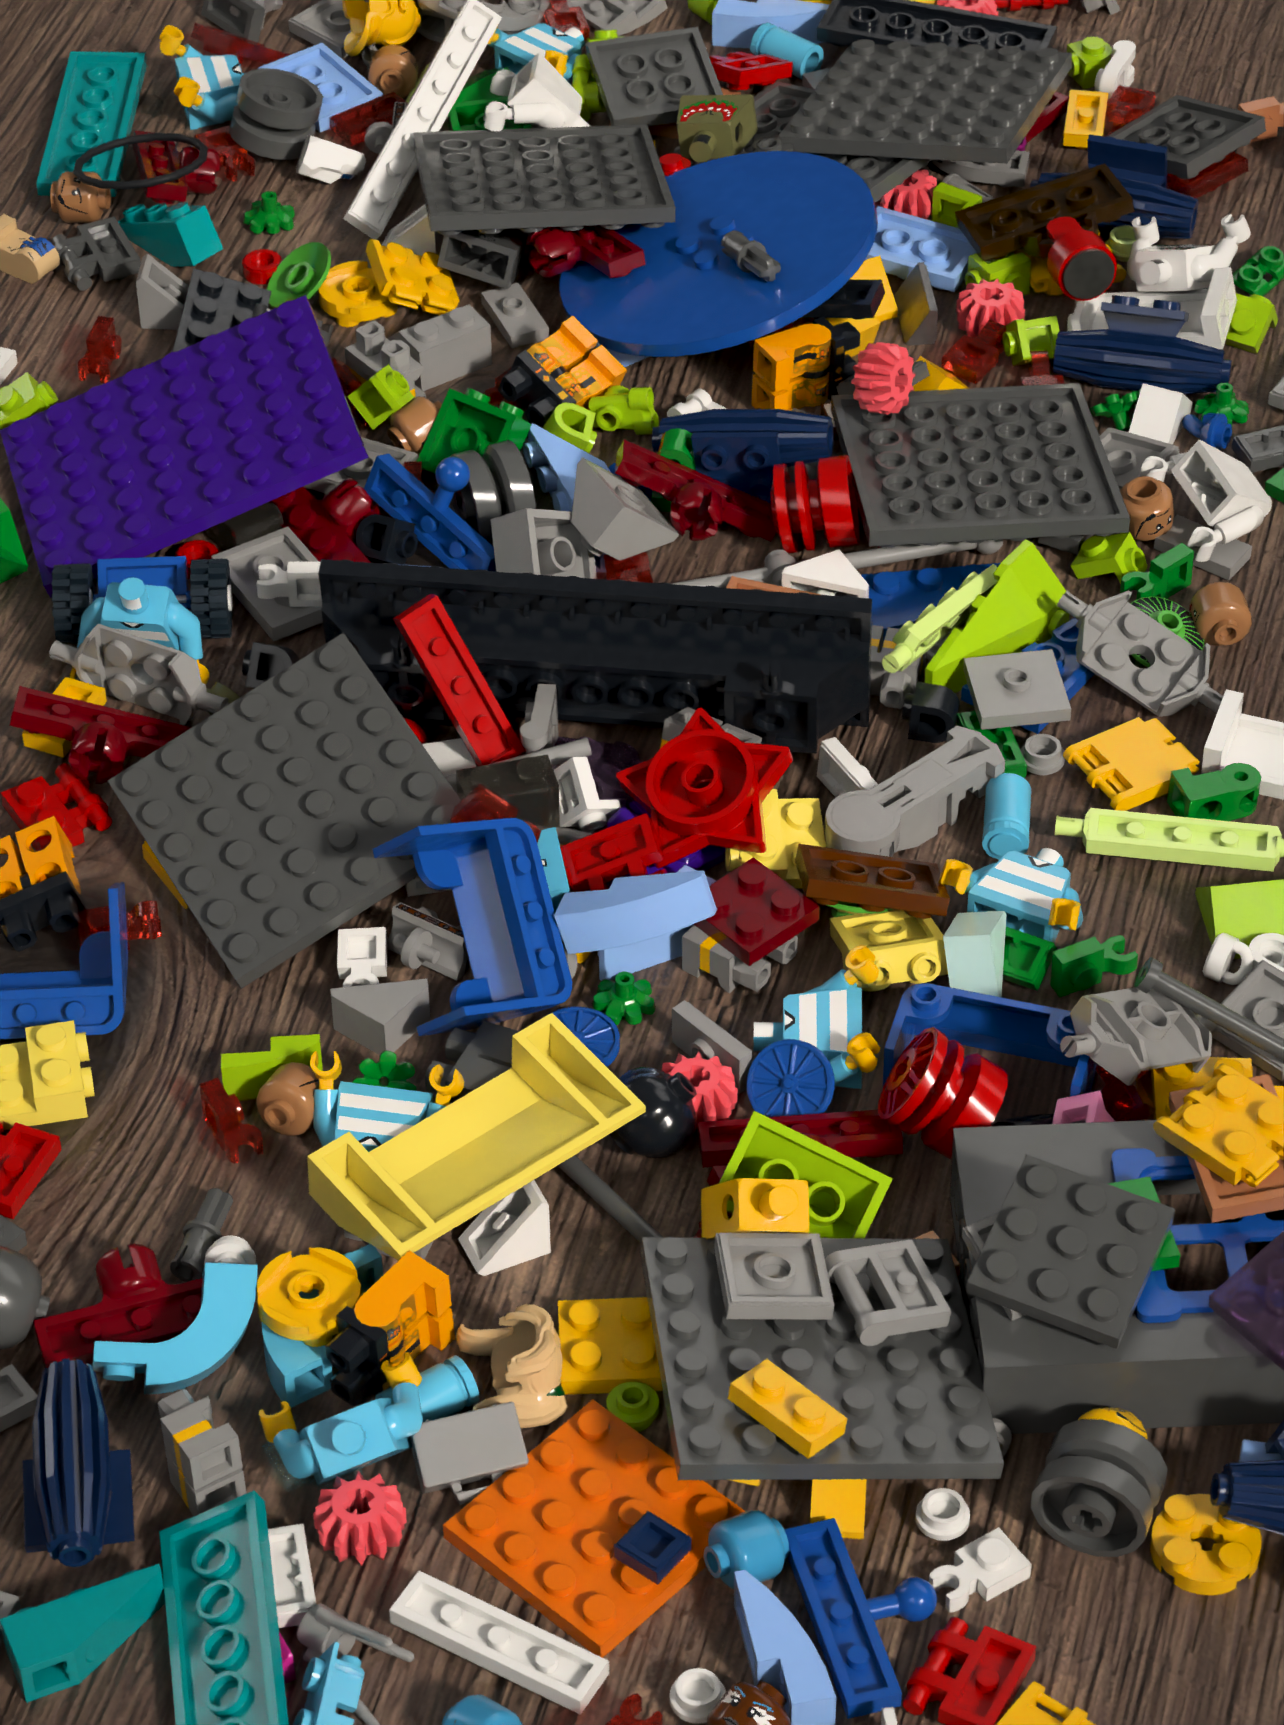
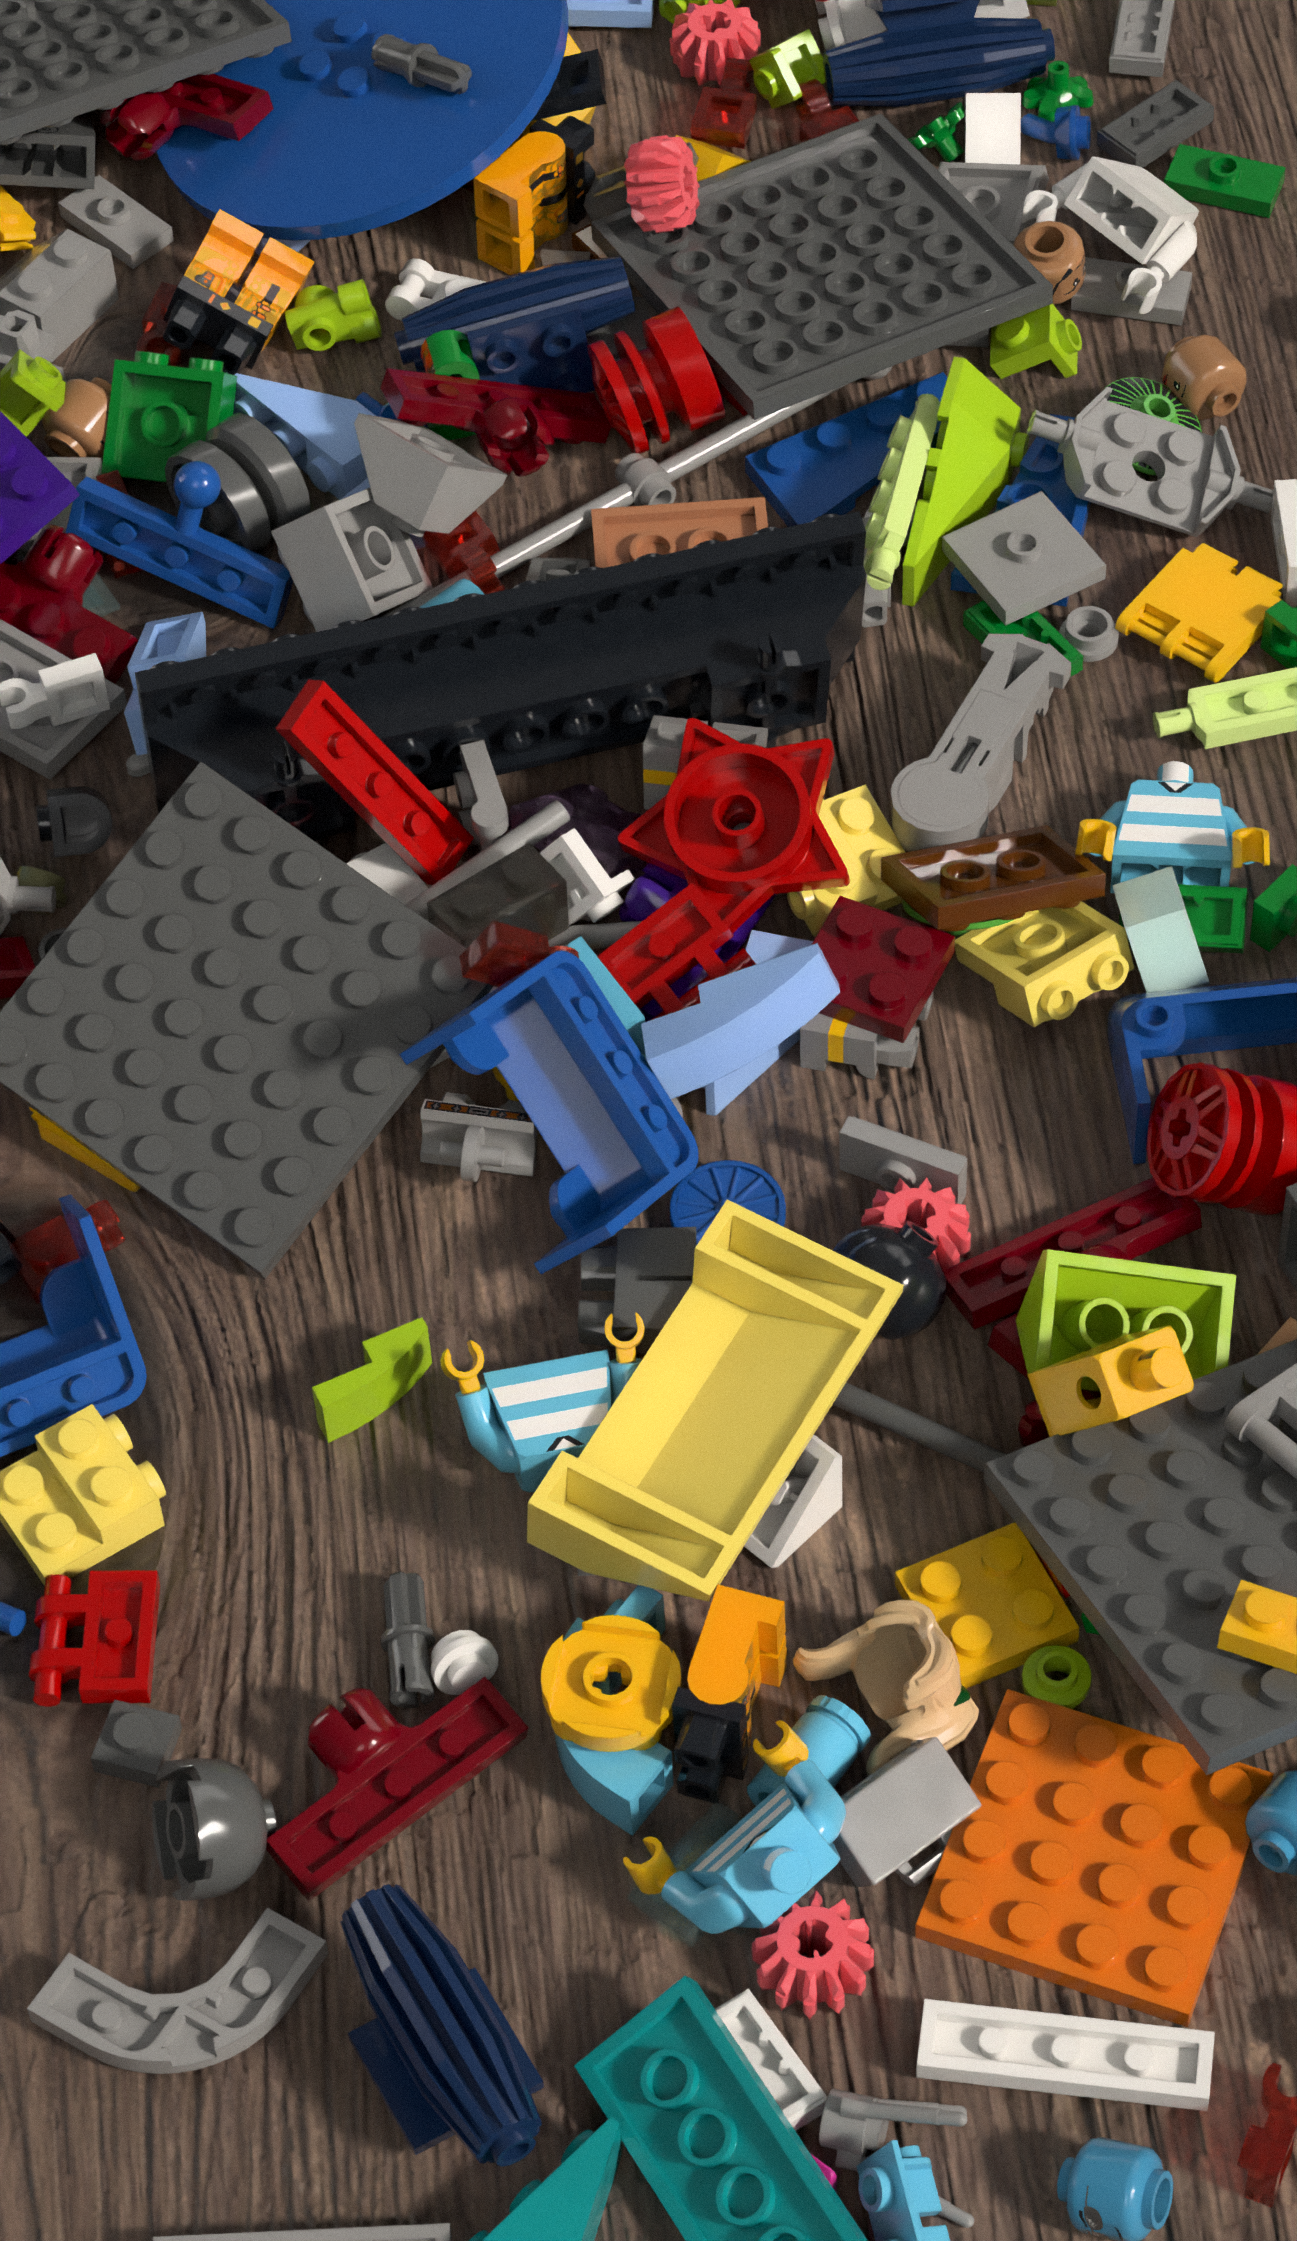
camera: 20 degrees left, 10 degrees up
(200, 1459) = (579, 1955): light grey hips -> none
(201, 1348) = (507, 1778): medium azure arch -> none
(224, 1118) = (350, 1470): clear red plate -> none
(289, 1098) = (423, 1413): medium nougat head -> none
(362, 955) = (407, 1188): white plate -> none
(381, 1013) = (470, 1259): light grey slope -> none
(386, 538) = (128, 592): black plate -> none
(394, 1074) = (527, 1341): green plant -> none
(573, 425) = (283, 359): lime plate -> none
(624, 998) = (754, 1132): green plant -> none
(652, 1547) = (1192, 1864): dark blue tile -> none
(773, 1276) = (1182, 1463): light grey plate -> none
(790, 1080) = (1026, 1179): blue wheel -> none
(826, 575) = (718, 473): white slope -> none
(831, 1020) = (1030, 1098): torso -> none
(840, 770) = (872, 740): white plate -> none
(917, 308) = (629, 67): flat silver slope -> none
(930, 712) = (929, 621): black plate -> none
(1006, 815) = (1094, 733): medium azure piece -> none
(1166, 576) = (1112, 345): green plate -> none

